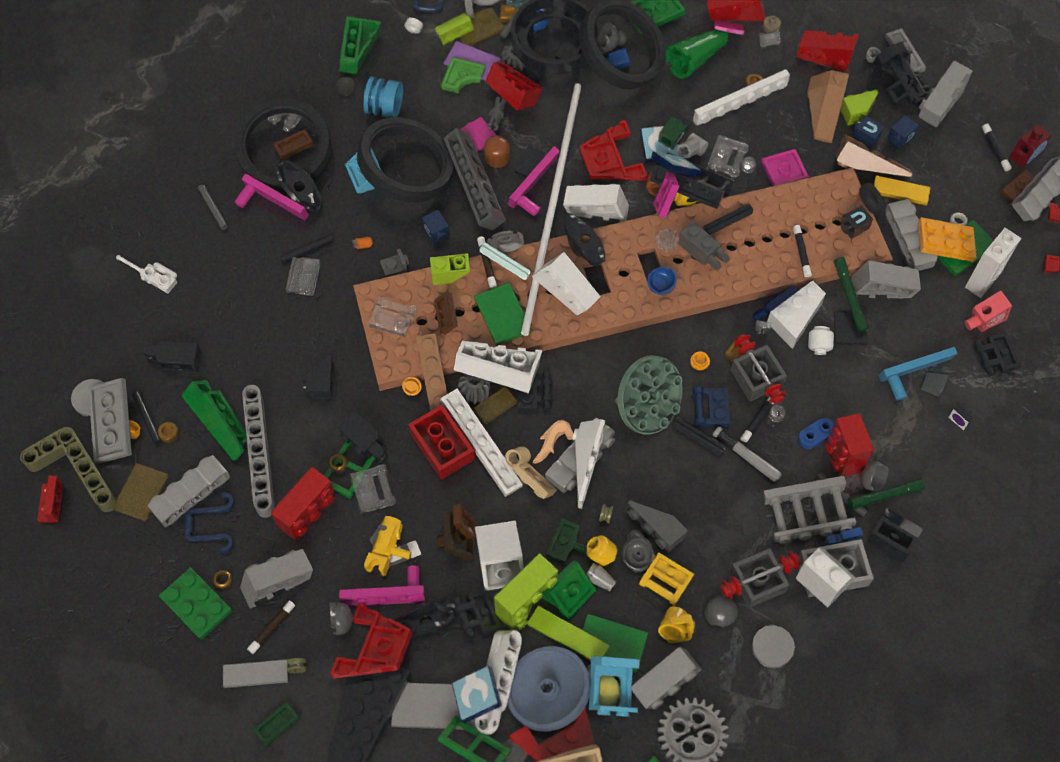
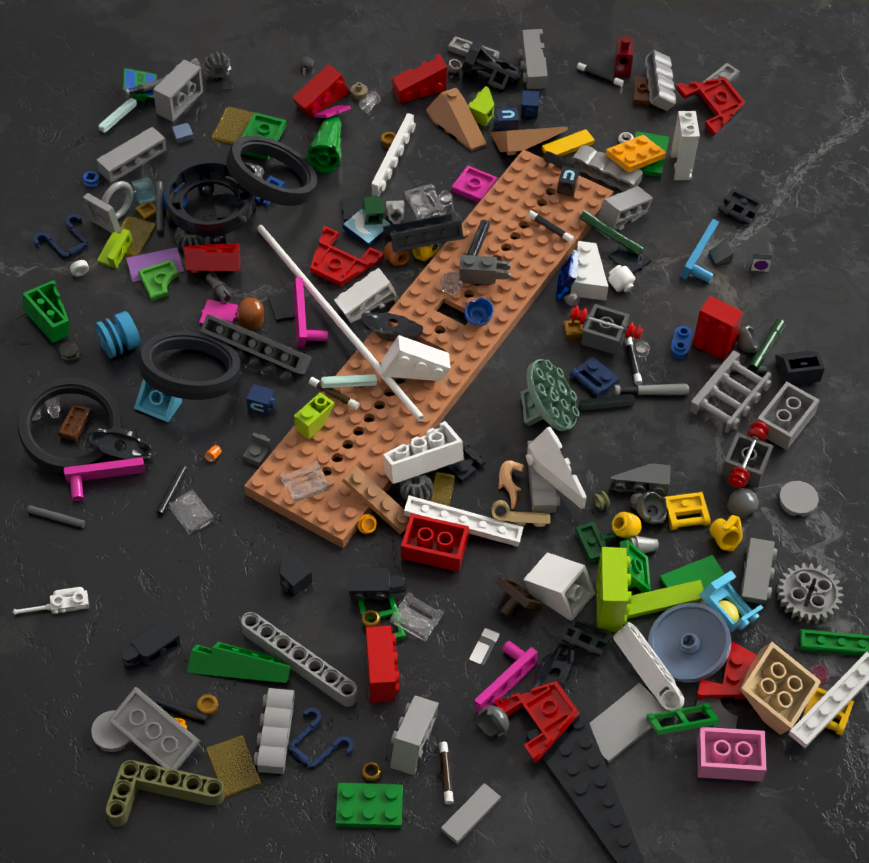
camera: 45 degrees left, 10 degrees down
(50, 500) = (168, 829): red bracket -> none
(276, 724) = (524, 834): dark green tile -> none
(296, 665) = (496, 780): olive bush -> none
(385, 546) = (471, 648): yellow piece -> none
(445, 313) = (344, 448): reddish brown plate -> none
(464, 521) = (517, 577): reddish brown plate -> none
(476, 694) = (648, 684): tile -> none
(501, 313) = (385, 420): green tile -> none
(506, 241) = (335, 367): light grey tile -> none
(666, 194) = (419, 252): dark pink plate -> none
(676, 164) = (404, 226): clear blue tile -> none
(700, 360) = (554, 352): light orange plate -> none
(824, 576) = (795, 417): white slope -> none
(844, 536) = (771, 392): blue plate -> none
(989, 312) = (709, 186): coral torso -> none

